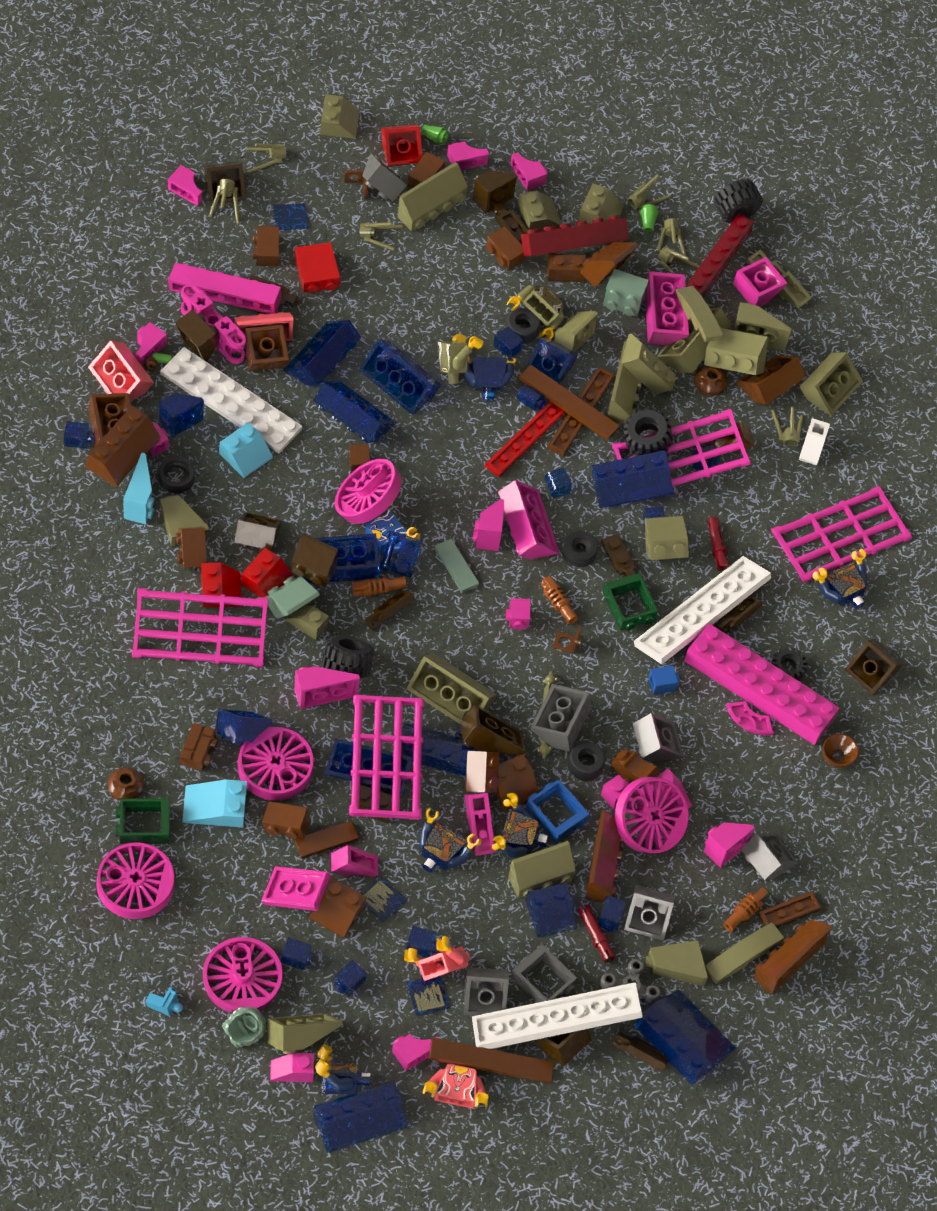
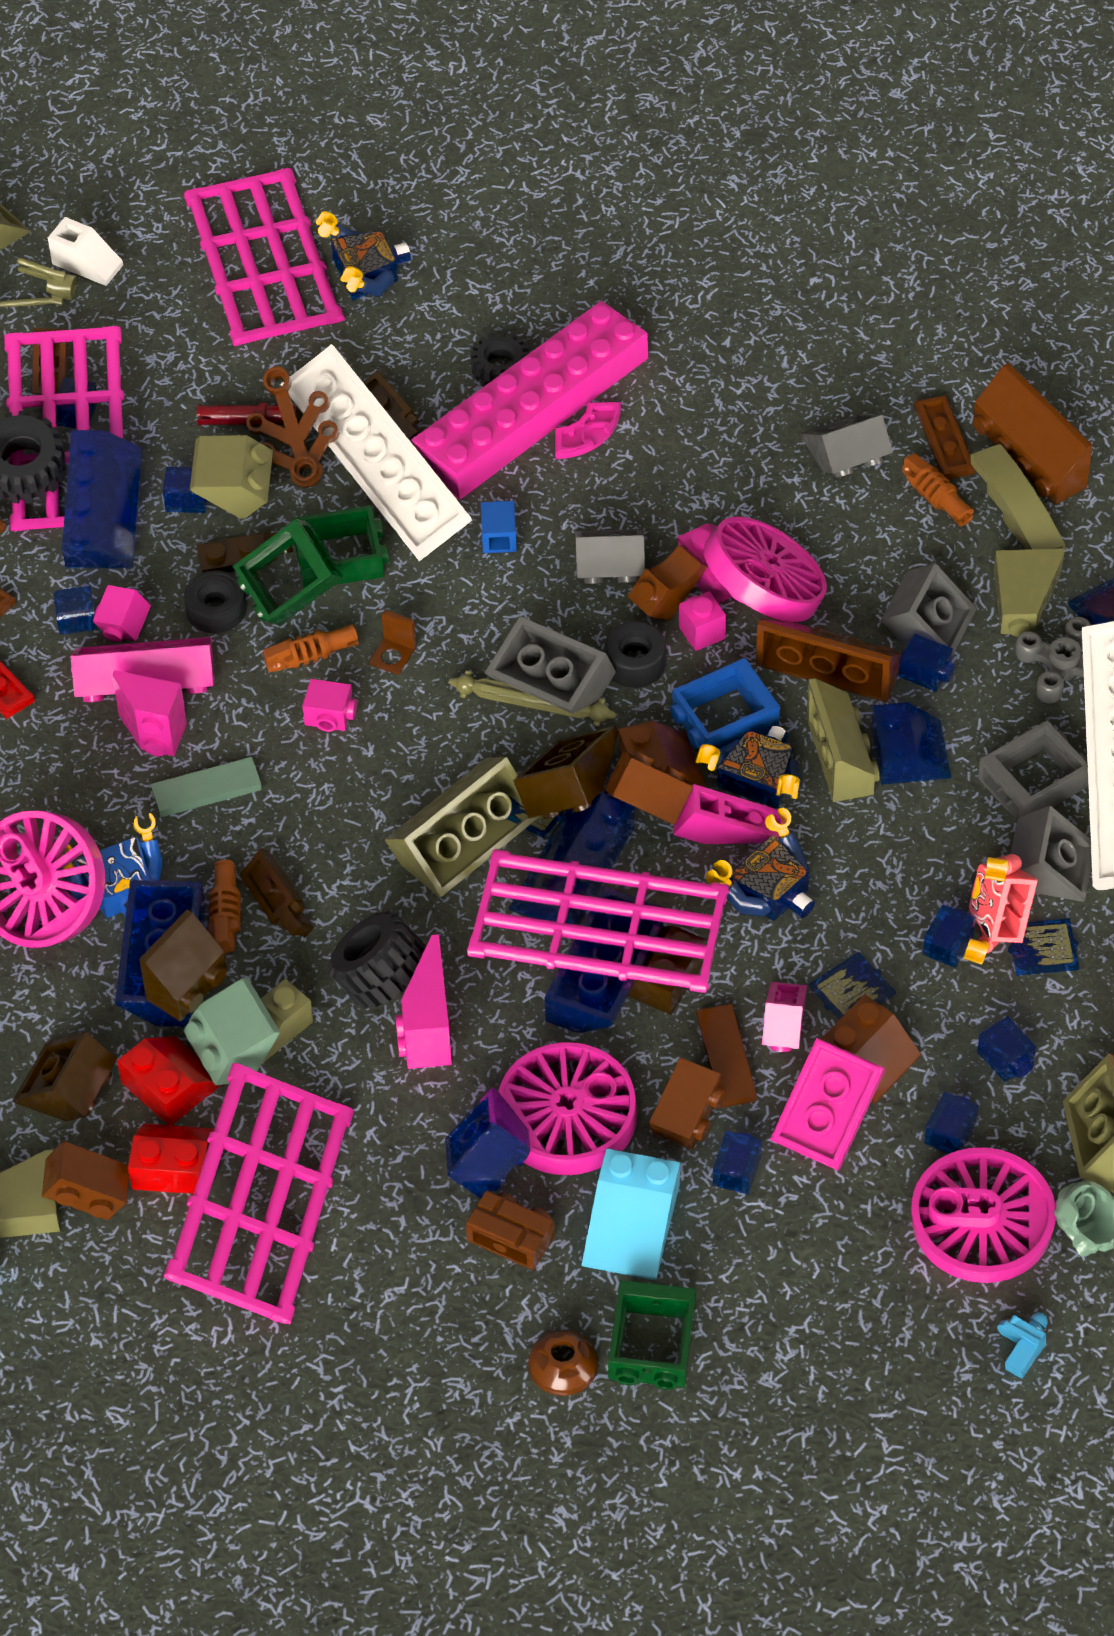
camera: 70 degrees left, 5 degrees down
(145, 877) = (793, 1357): dark pink piece -> none
(256, 850) = (737, 1162): none -> clear blue brick
(406, 556) = (178, 845): clear blue plate -> none
(558, 503) = (121, 613): none -> dark pink brick
(600, 940) = (971, 688): dark red pin -> none
(605, 583) = (314, 552): none -> dark green window
(706, 566) = (295, 433): none -> reddish brown plant
(727, 841) = (826, 485): dark pink slope -> none
(840, 743) = (673, 311): reddish brown piece -> none
(873, 666) = (524, 253): dark brown slope -> none

